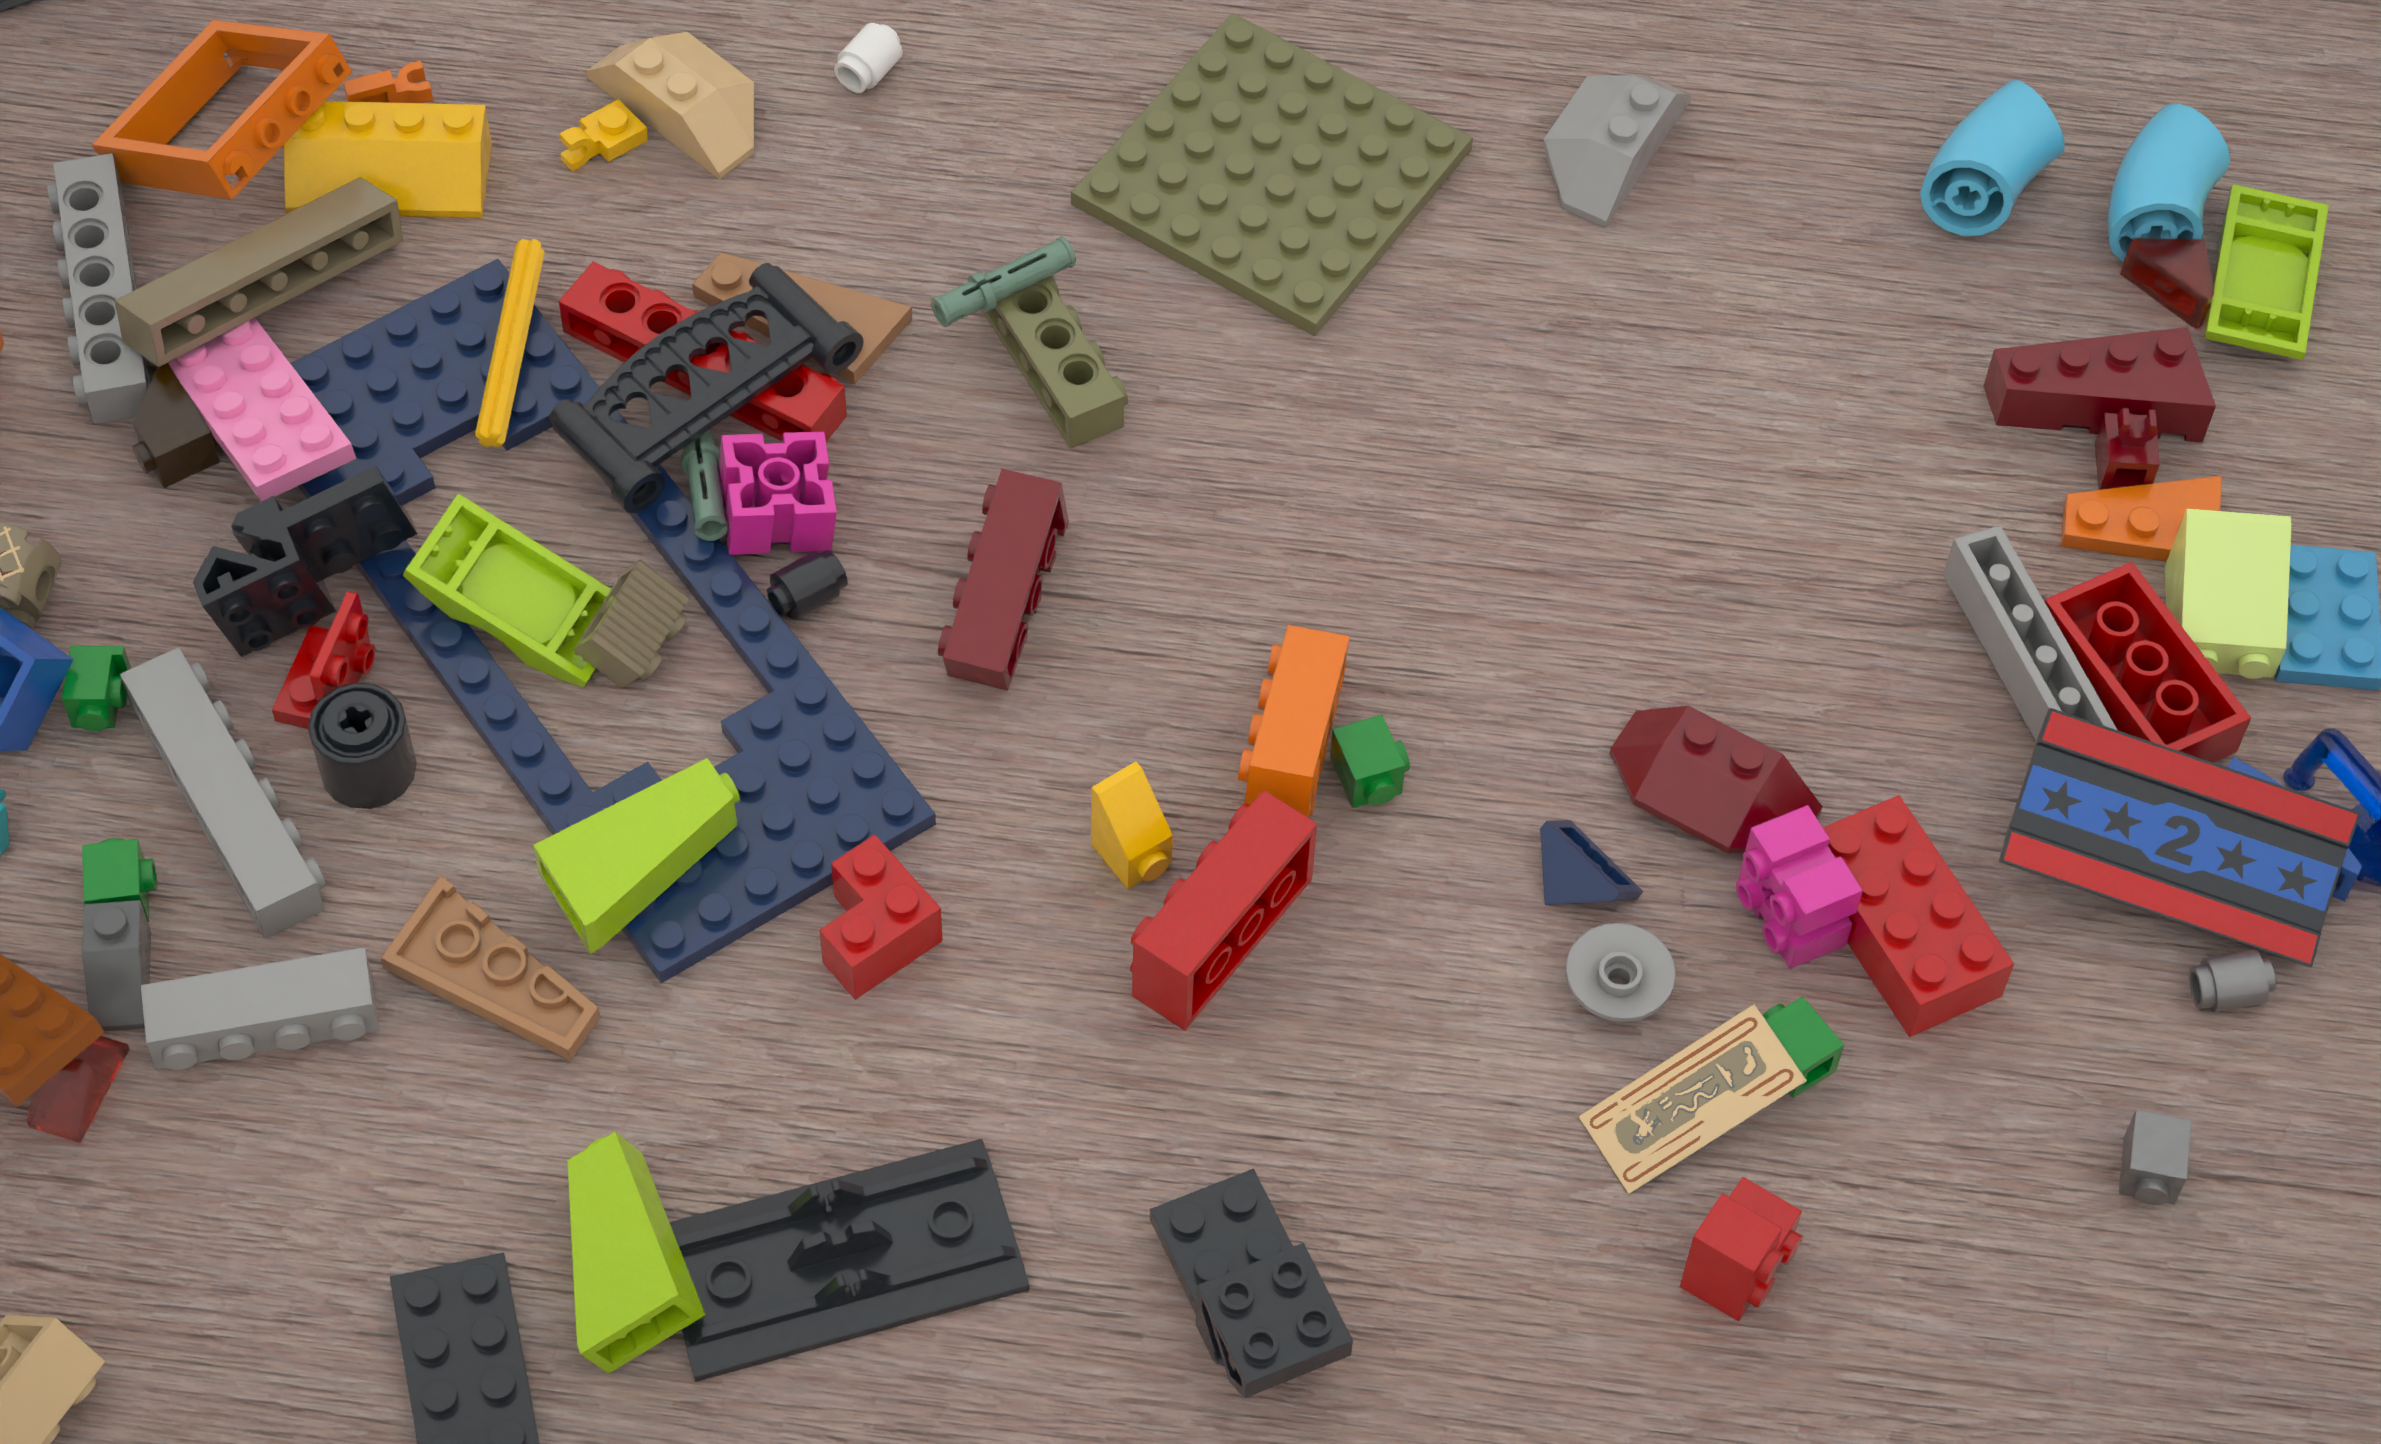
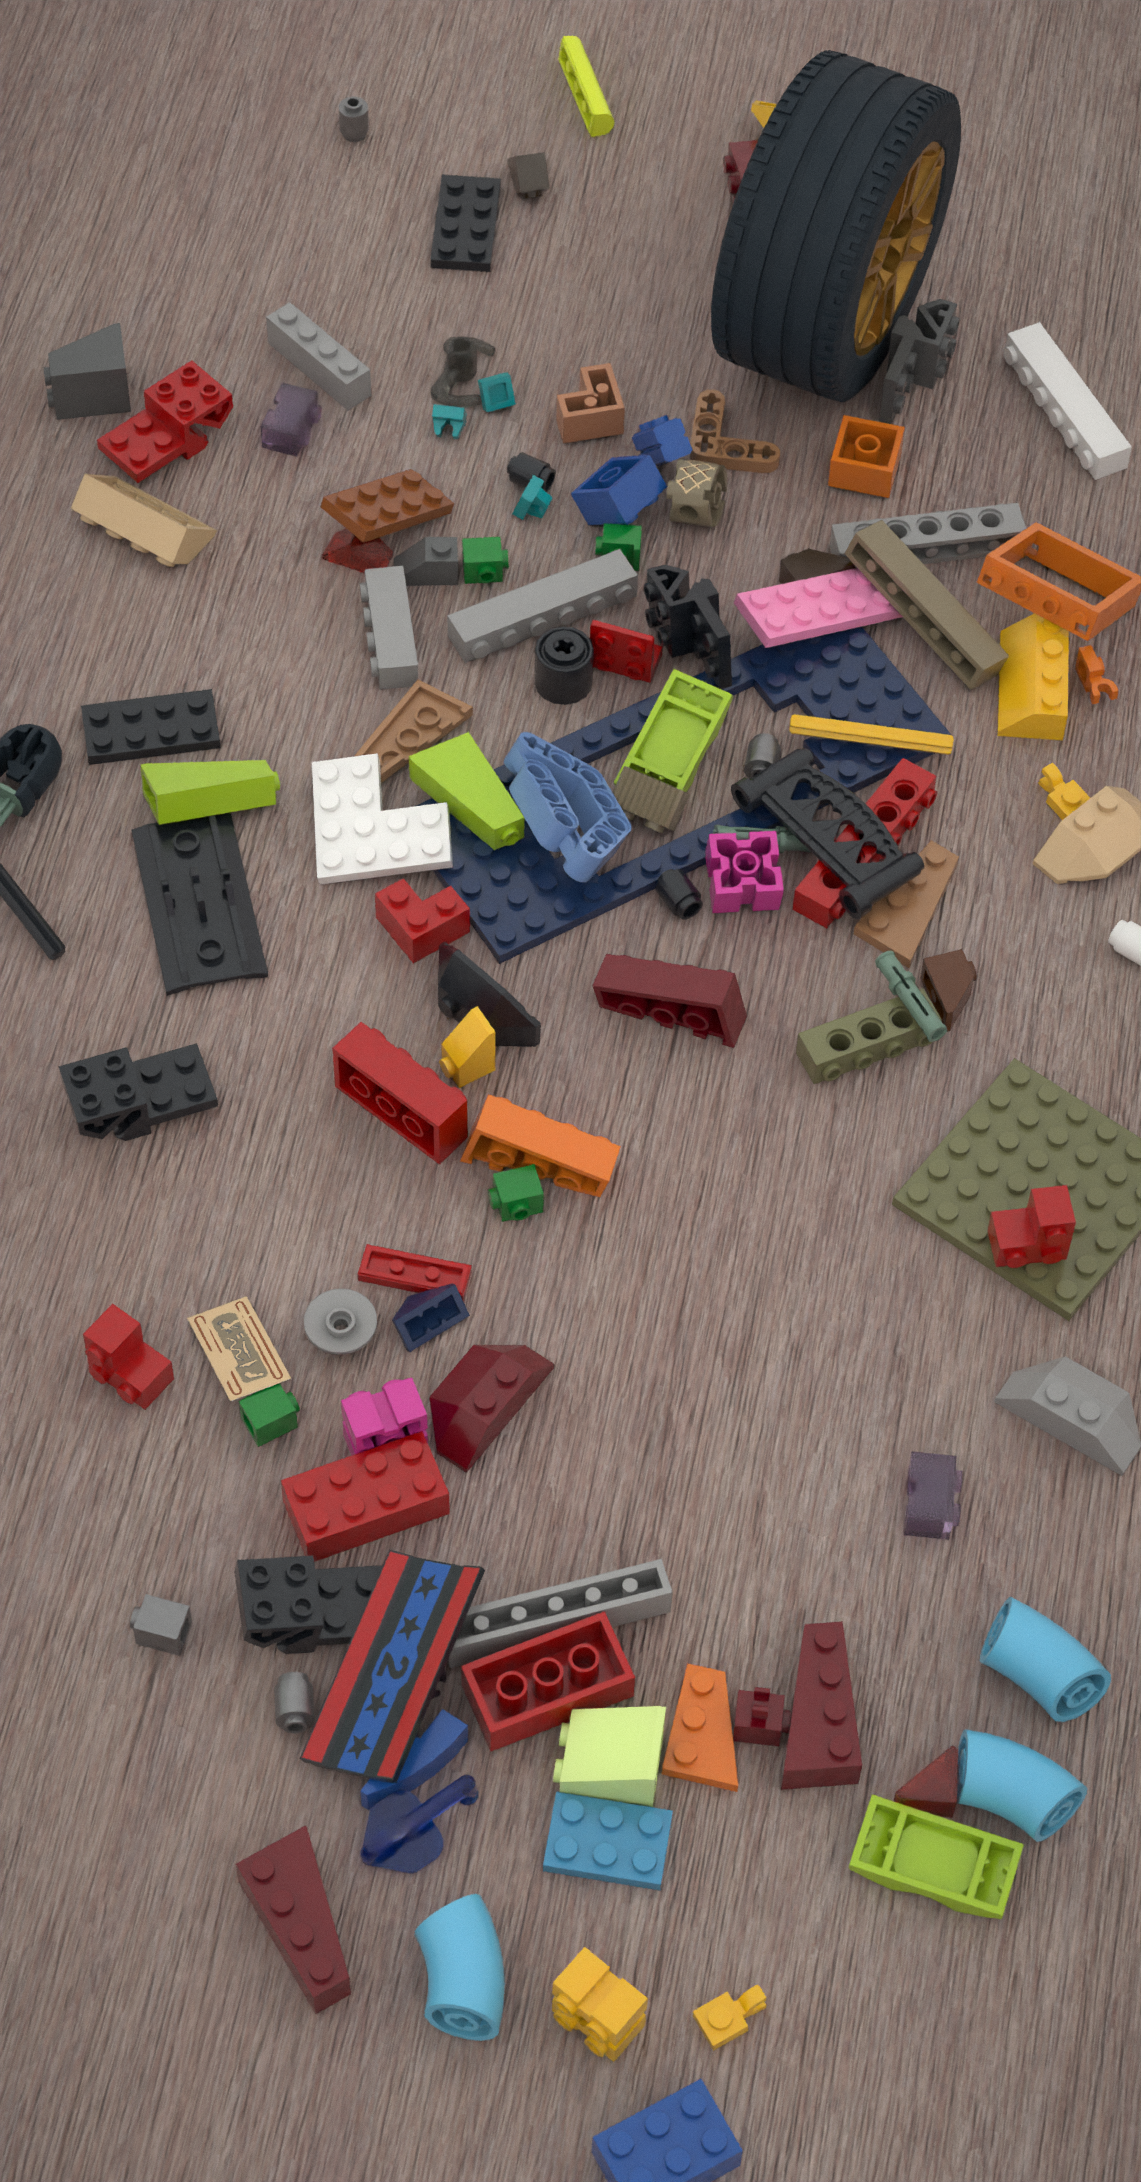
camera: 95 degrees right, 0 degrees up
(542, 487) = (761, 753): none -> flat silver brick
(677, 708) = (557, 796): none -> medium blue piece
(711, 1025) = (360, 838): none -> white plate
(952, 251) = (948, 983): none -> reddish brown slope
(1023, 836) = (466, 986): none -> black wedge
(1381, 143) = (1035, 1232): none -> red brick
(1510, 895) = (411, 1270): none -> red tile
(1771, 278) = (931, 1495): none -> clear purple brick
(2091, 966) = (300, 1605): none -> black piece

